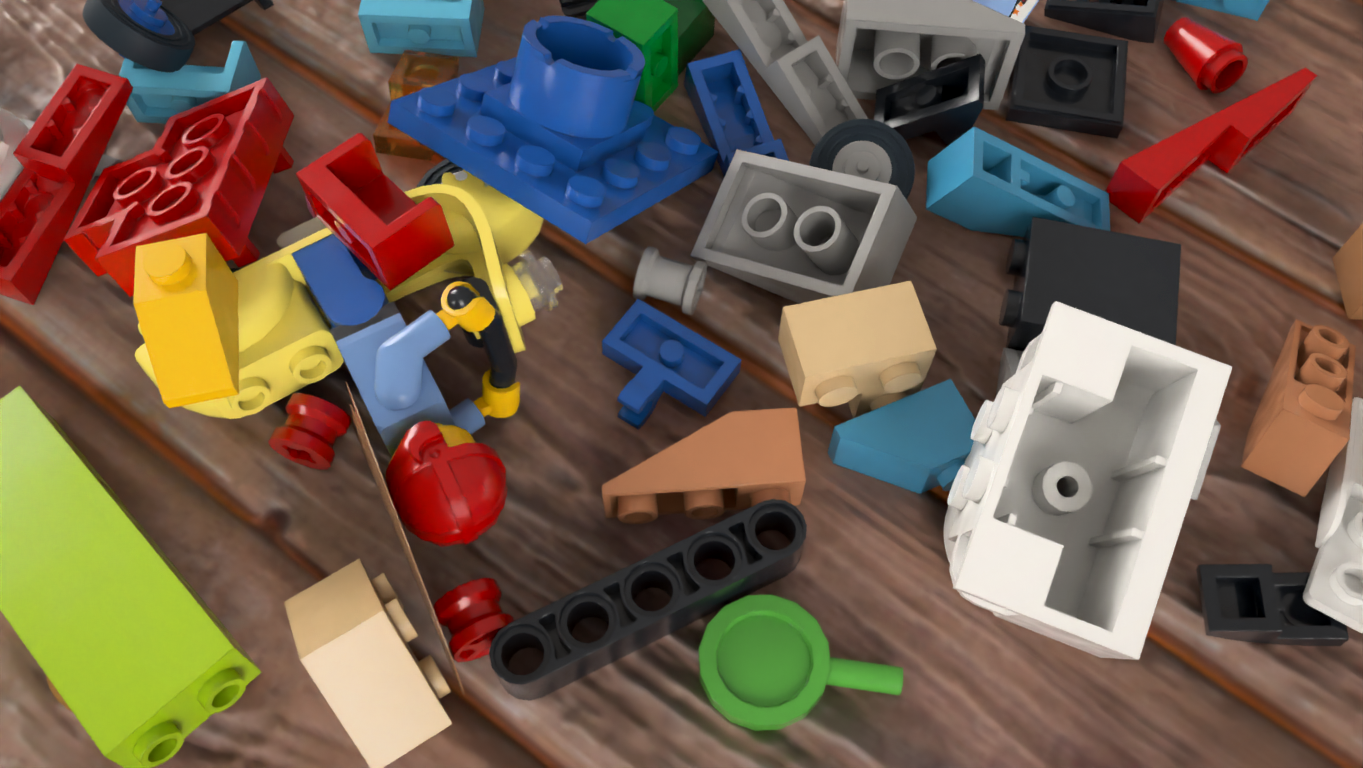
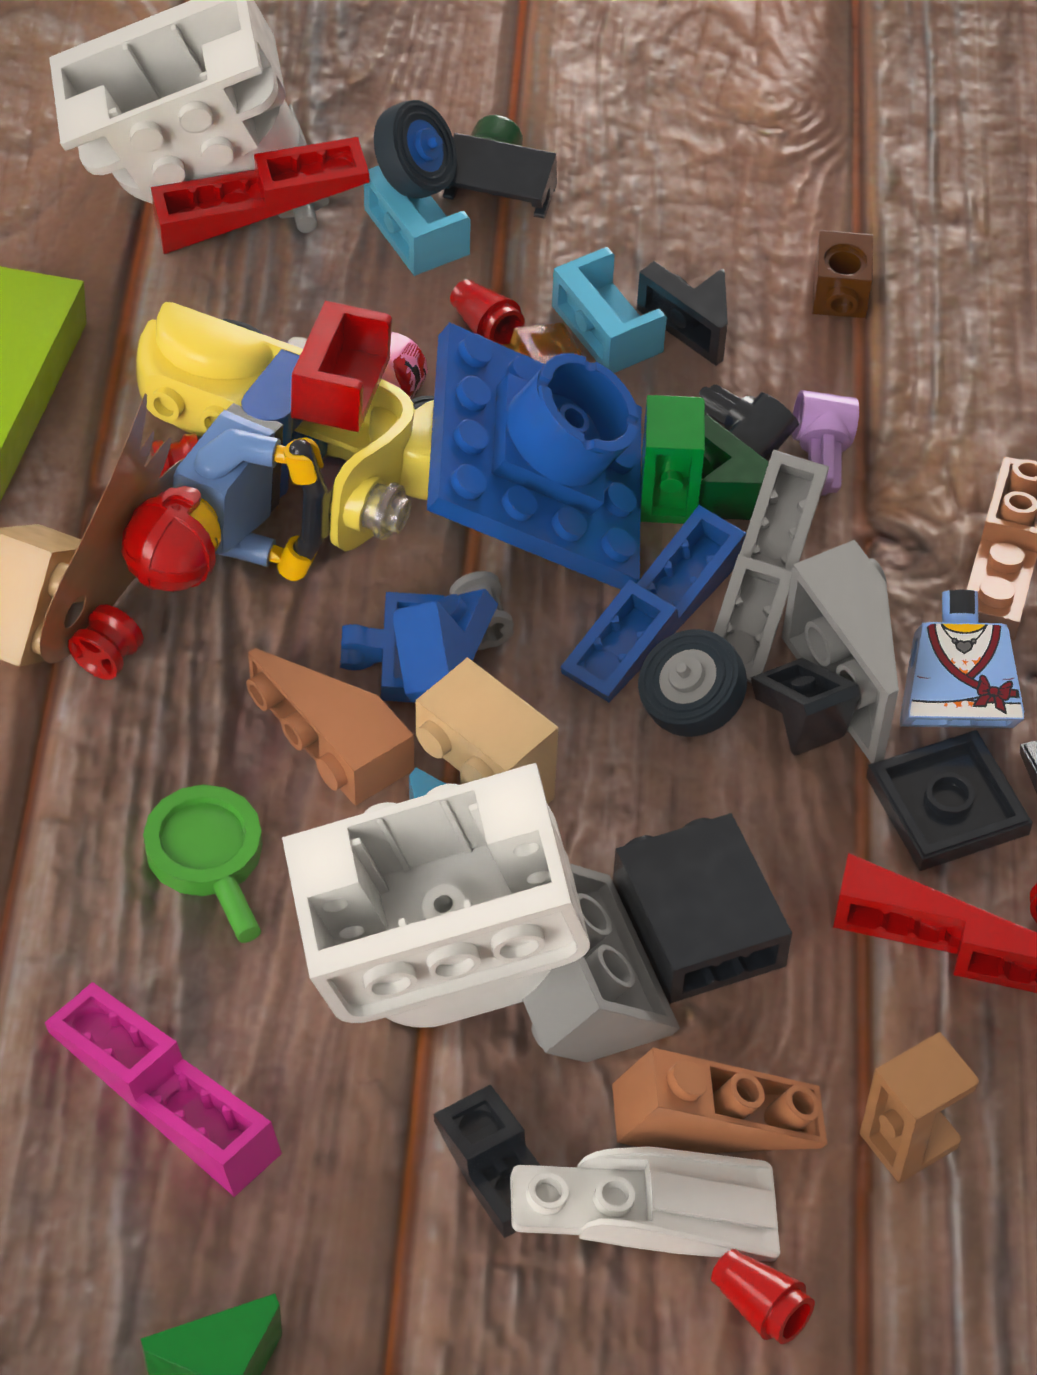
camera: 55 degrees right, 10 degrees down
(188, 319) = (175, 319): yellow slope -> none
(195, 181) = (295, 265): red piece -> none
(349, 94) = (487, 311): none -> red cone
(633, 627) = (168, 724): black beam -> none
(714, 324) = (439, 637): none -> blue slope
(804, 229) = (591, 671): light grey slope -> none
(1001, 188) = (760, 789): dark azure slope -> none

